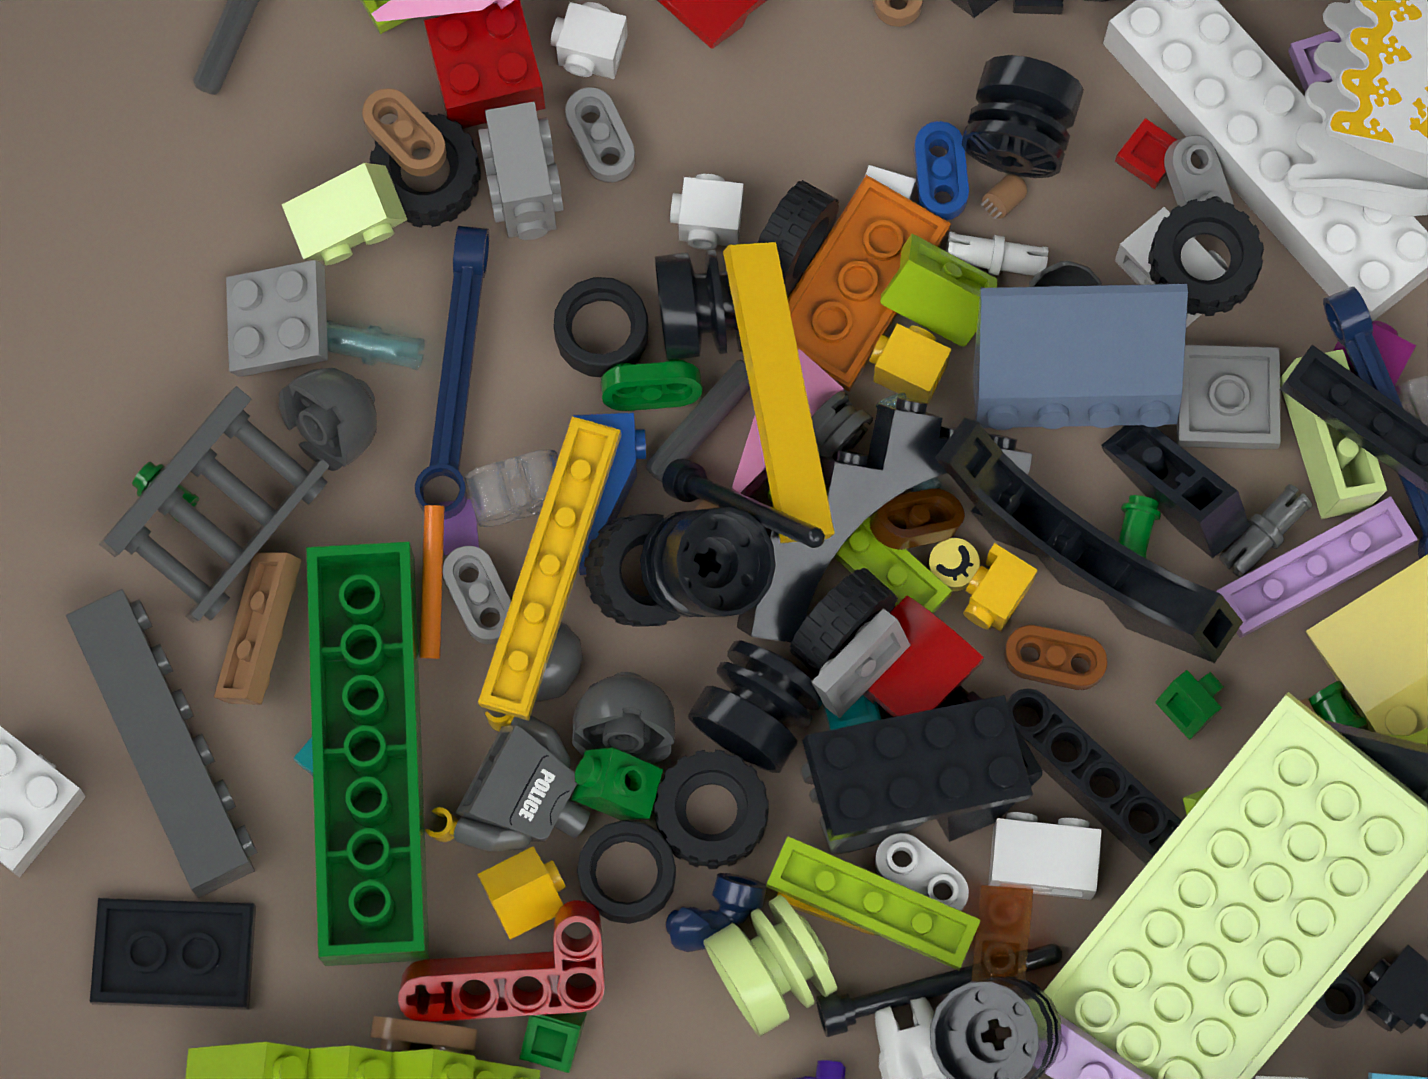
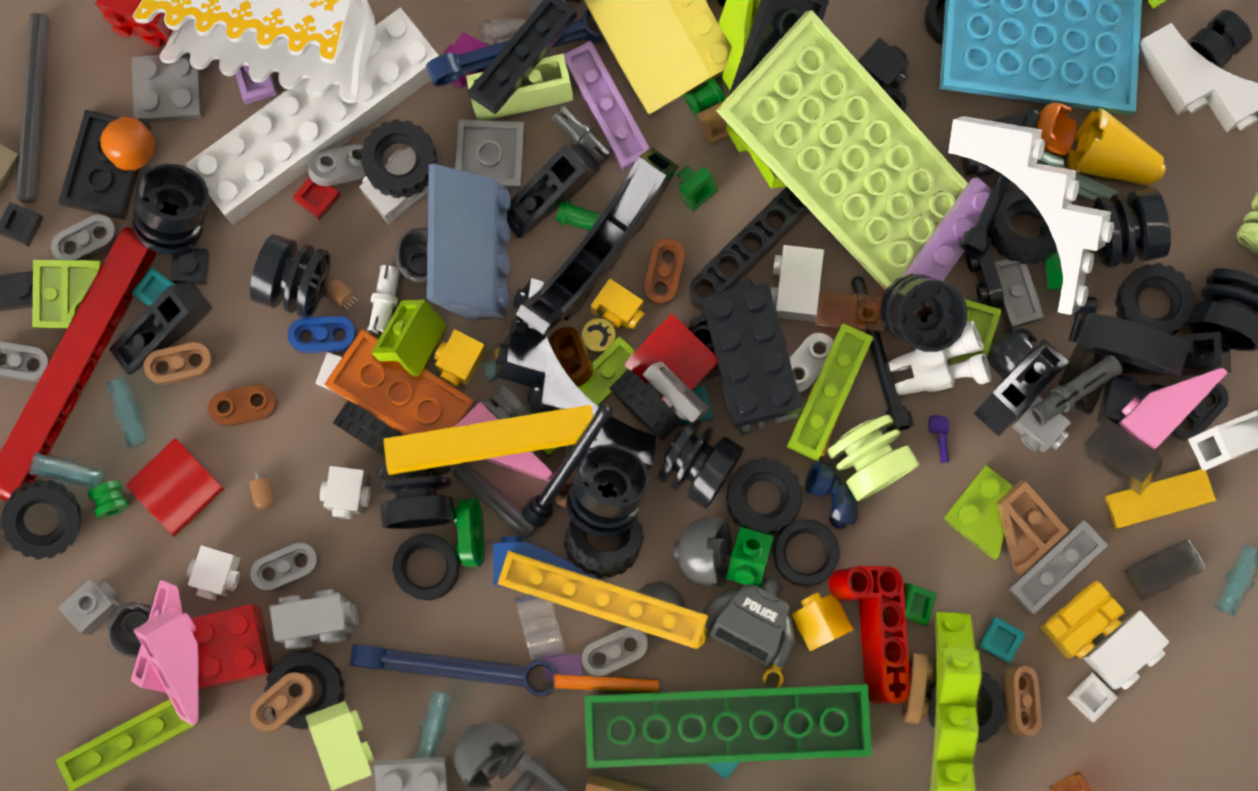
camera: 85 degrees left, 5 degrees up
(706, 100) = (261, 493): none -> medium nougat piece
(833, 67) = (242, 406): none -> dark orange plate

